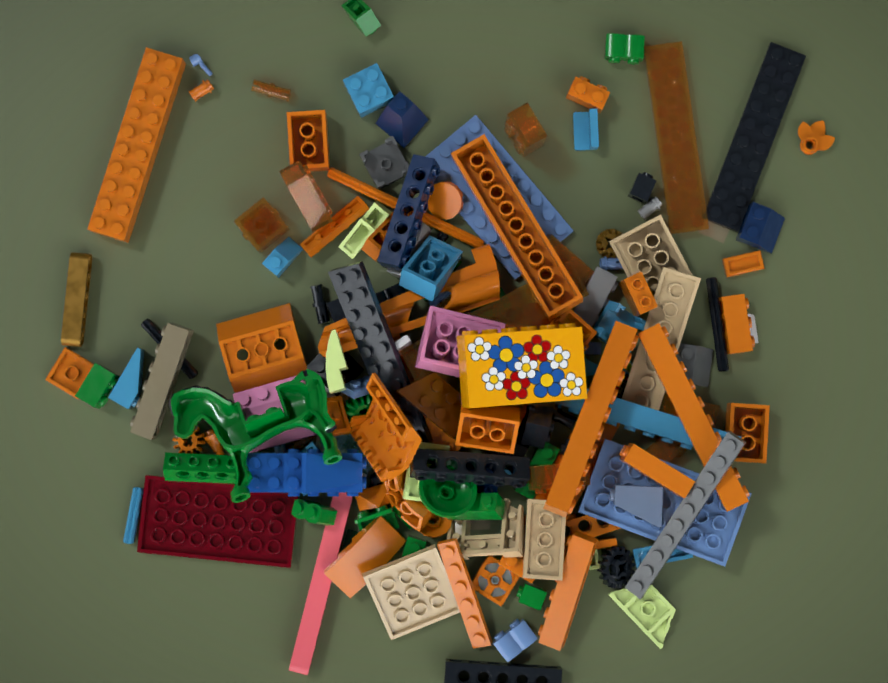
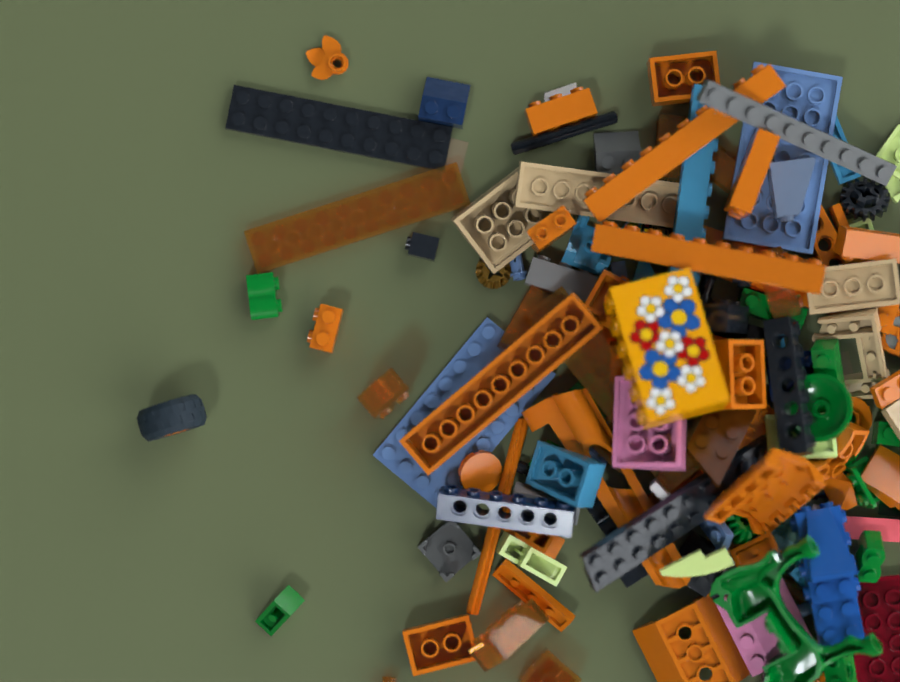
camera: 100 degrees left, 0 degrees up
(282, 256) = (580, 649): dark azure slope -> none
(319, 304) = (626, 595): black pin -> none
(368, 90) = (367, 585): dark azure brick -> none
(402, 119) = (394, 539): dark blue slope -> none
(586, 130) = (367, 323): dark azure panel -> none
(650, 207) = (444, 233): light grey pin -> none
(743, 263) = (488, 115): orange tile -> none

